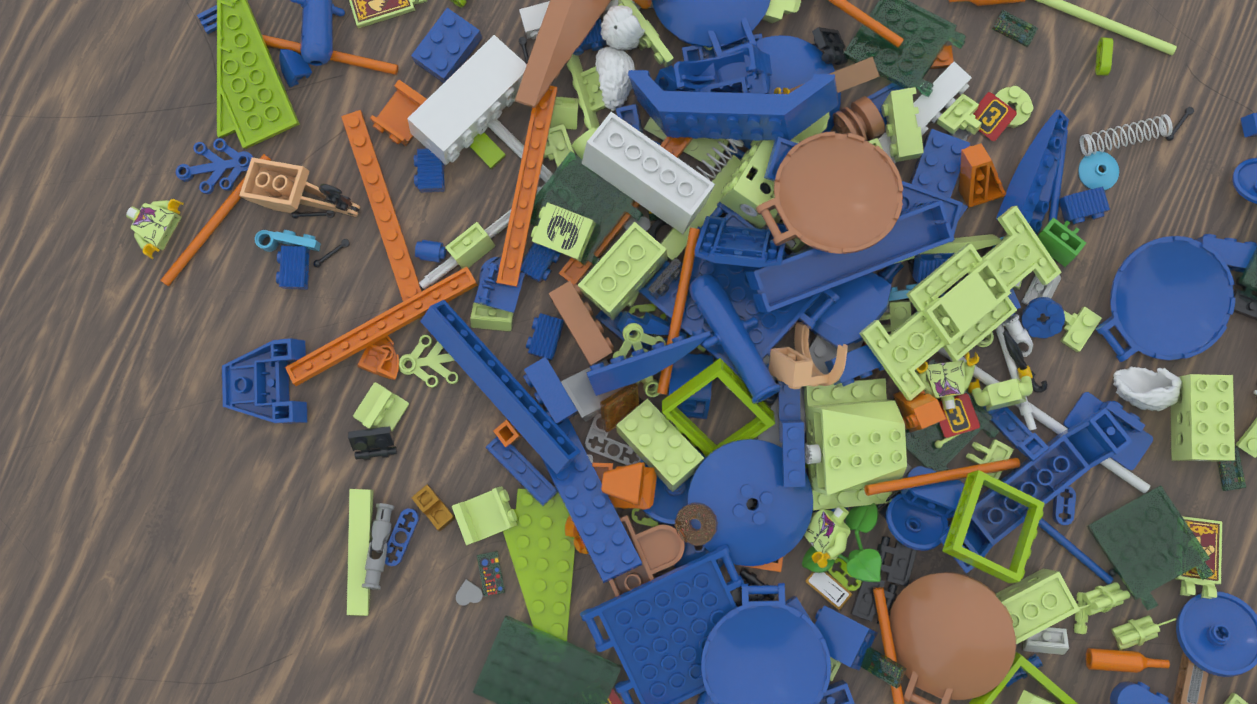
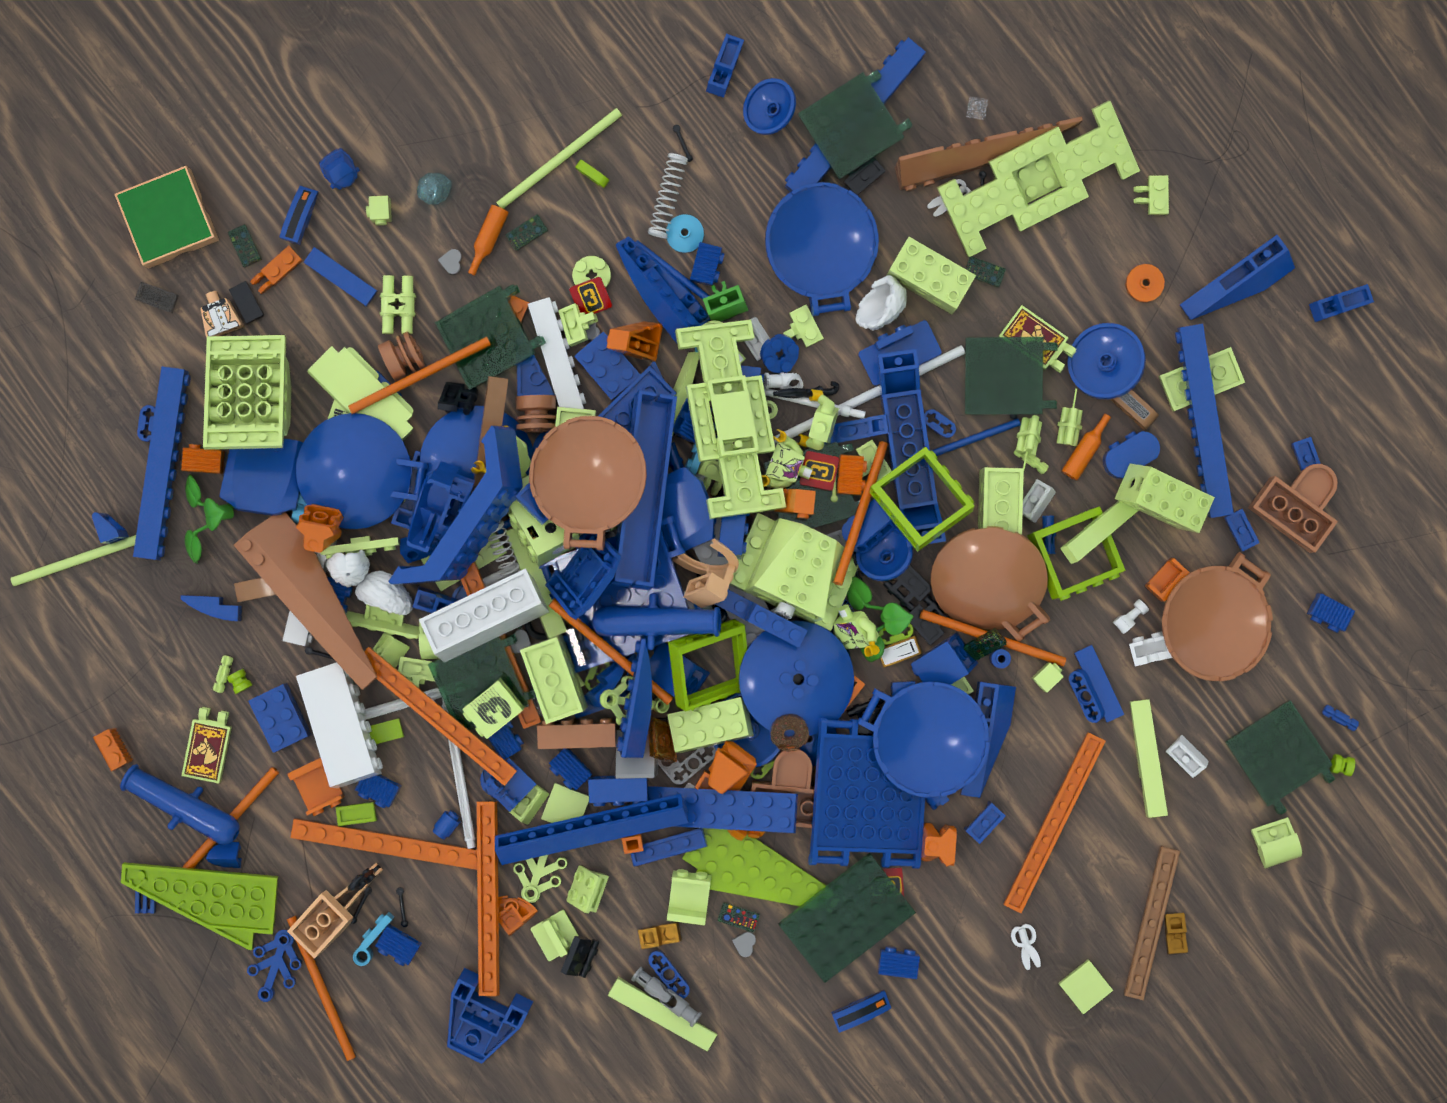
camera: 60 degrees left, 5 degrees up
(154, 224) = (298, 1041): yellowish green torso -> none
(395, 164) = (356, 813): none -> lime tile
(440, 415) = (587, 889): none -> yellowish green bracket
(470, 246) = (460, 789): yellowish green panel -> none
(509, 349) = (564, 804): none -> yellowish green tile
(872, 686) = (994, 658): none -> blue brick
(902, 125) = (559, 380): yellowish green wedge -> none
(971, 447) = (850, 475): none -> orange brick

